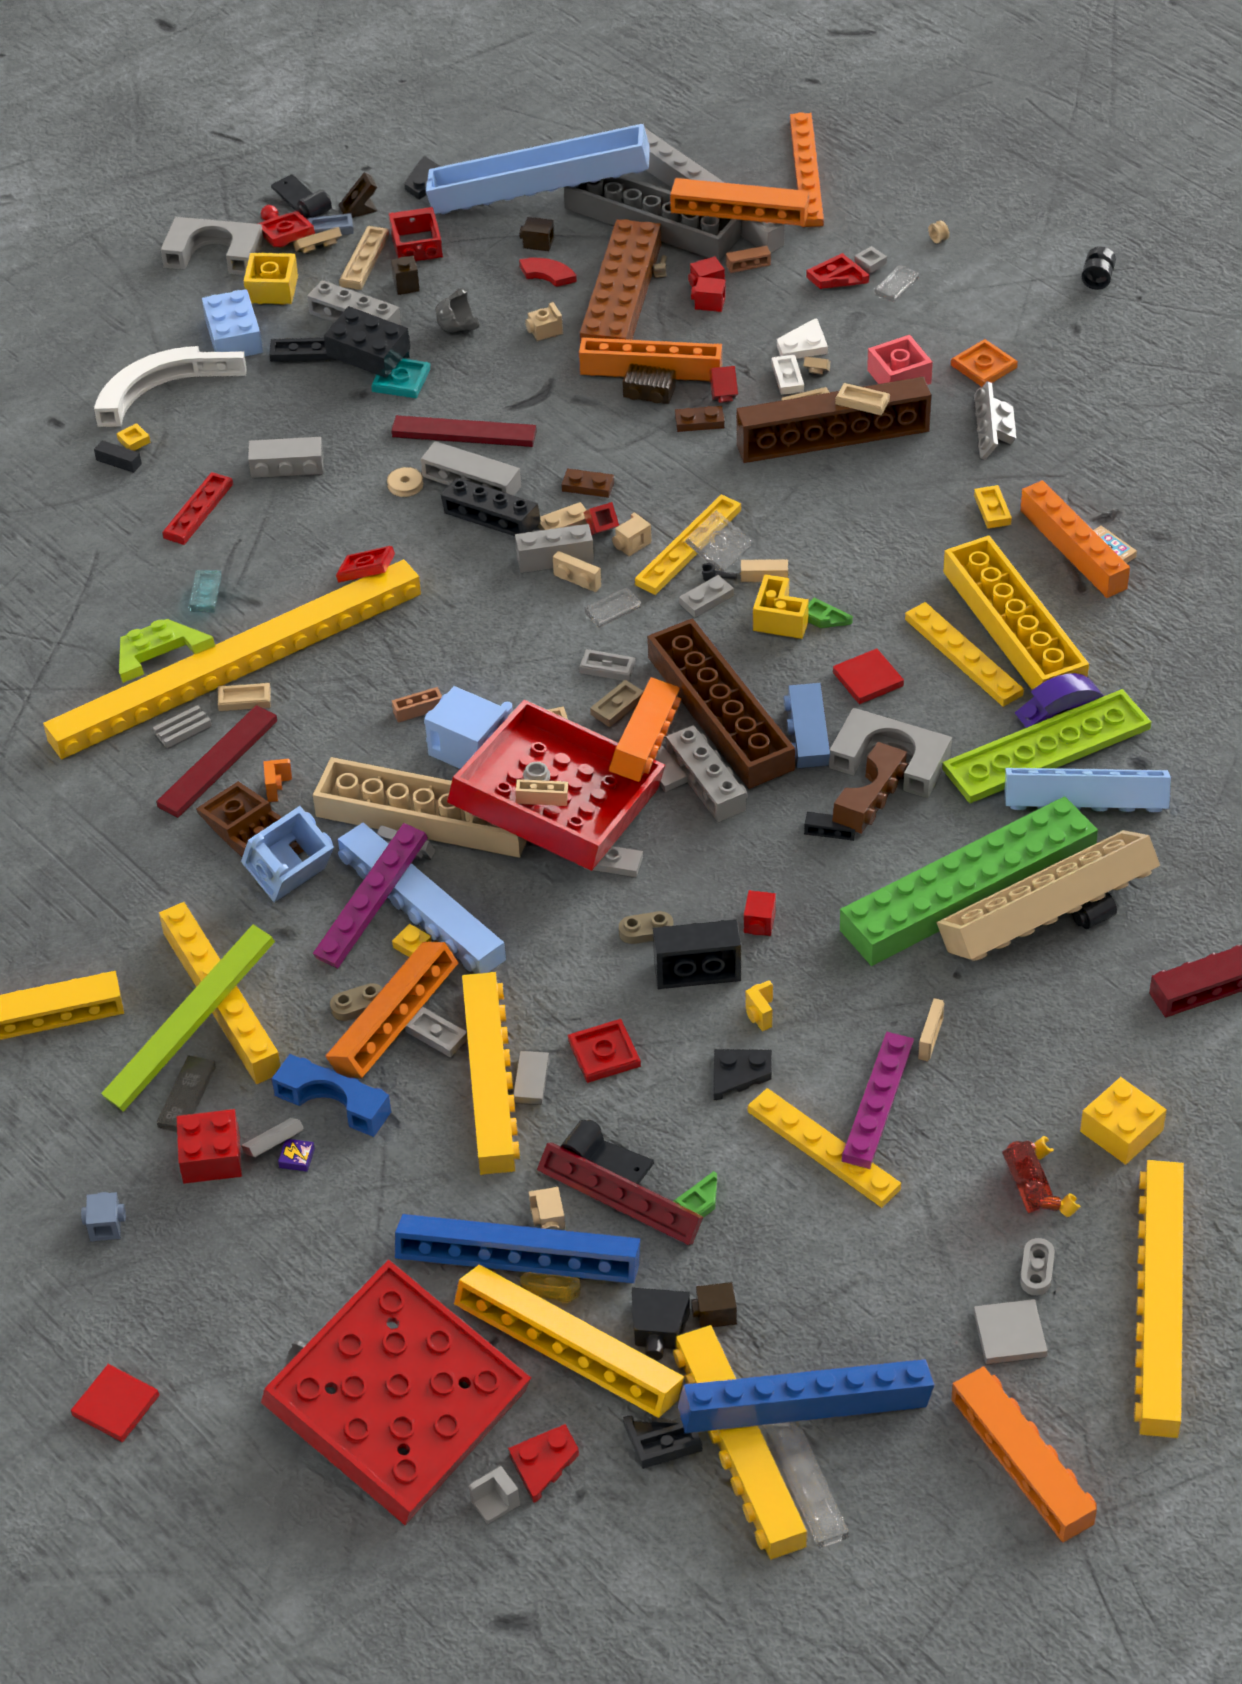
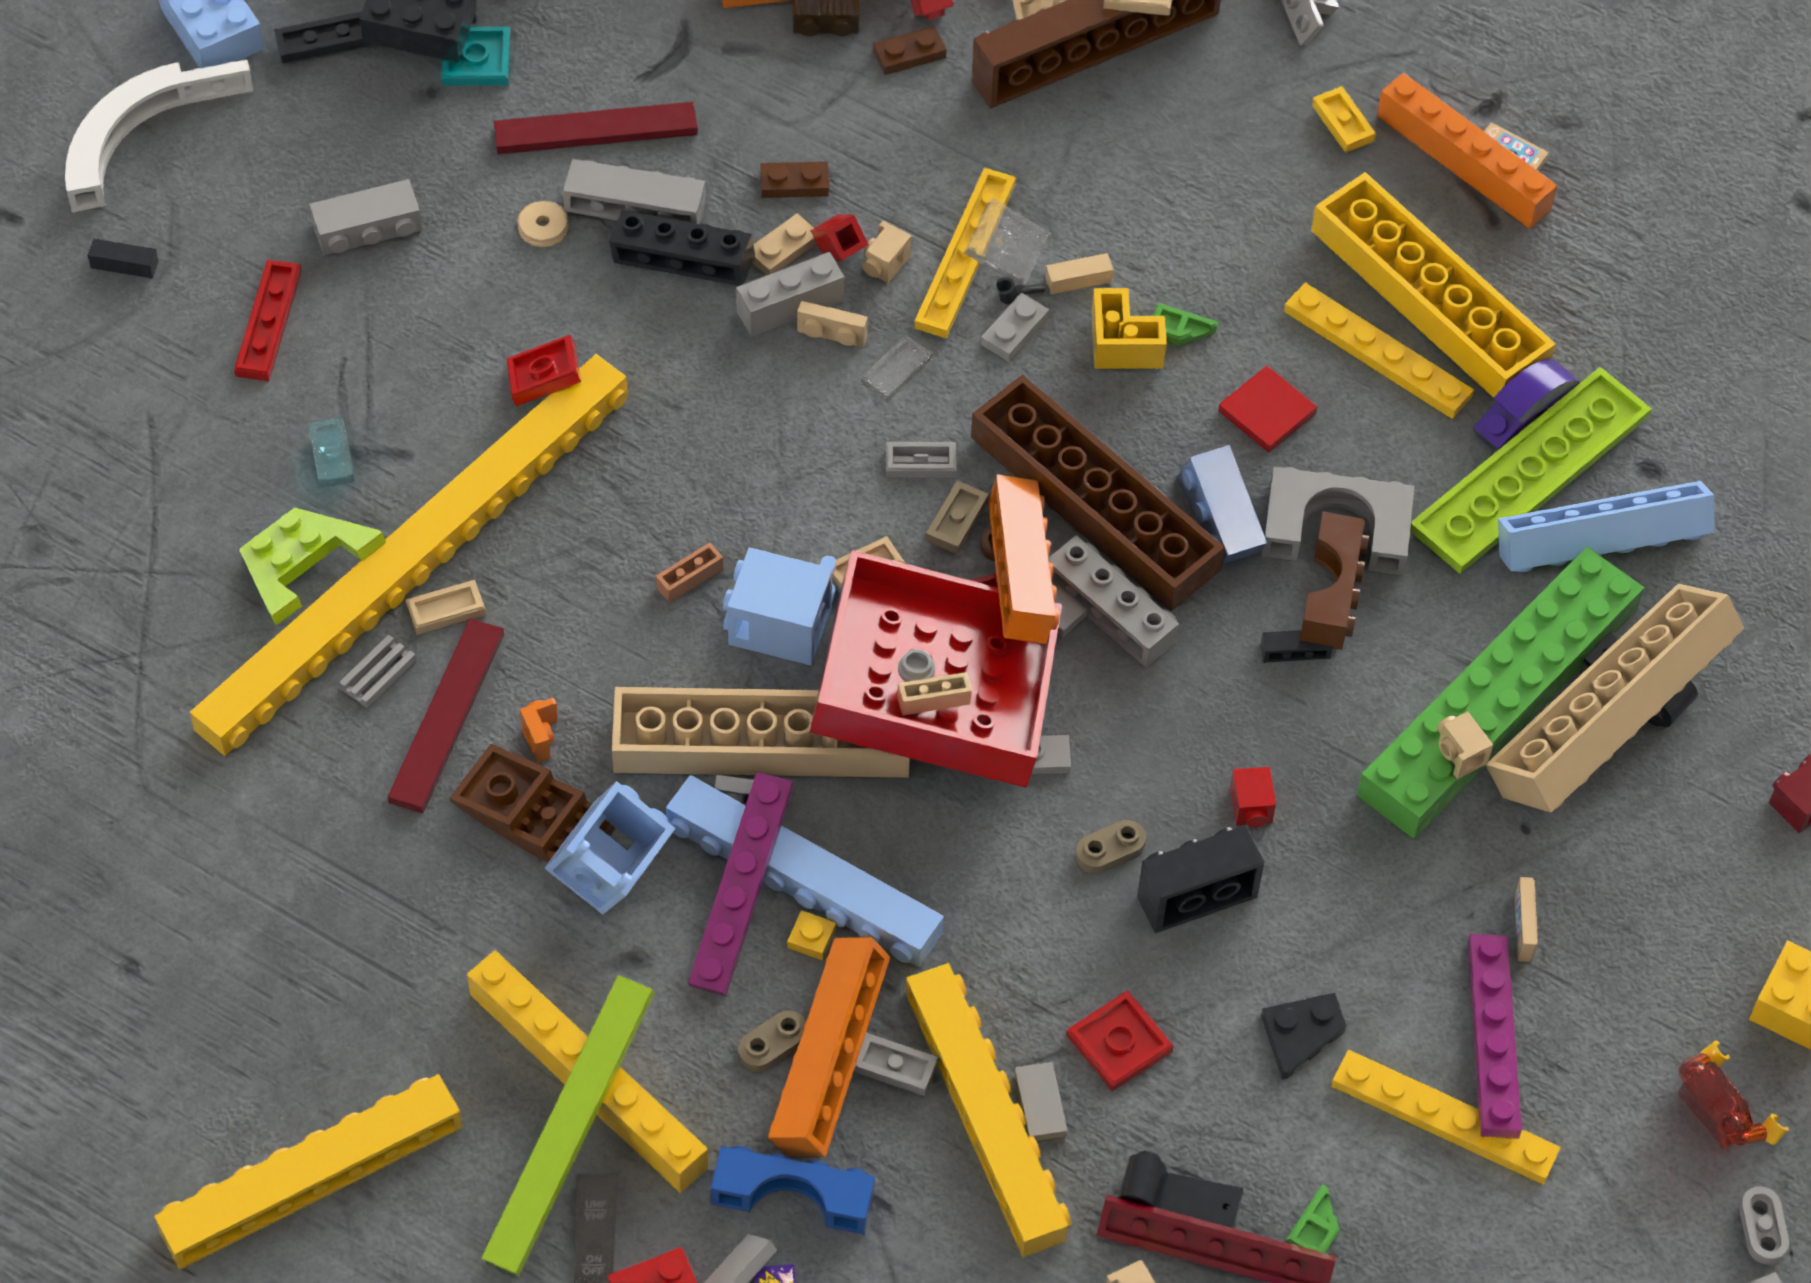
camera: 20 degrees left, 10 degrees up
(133, 437) = (135, 224): yellow plate -> none
(757, 1004) = (1297, 935): yellow bracket -> none
(918, 900) = (1464, 743): none -> tan brick

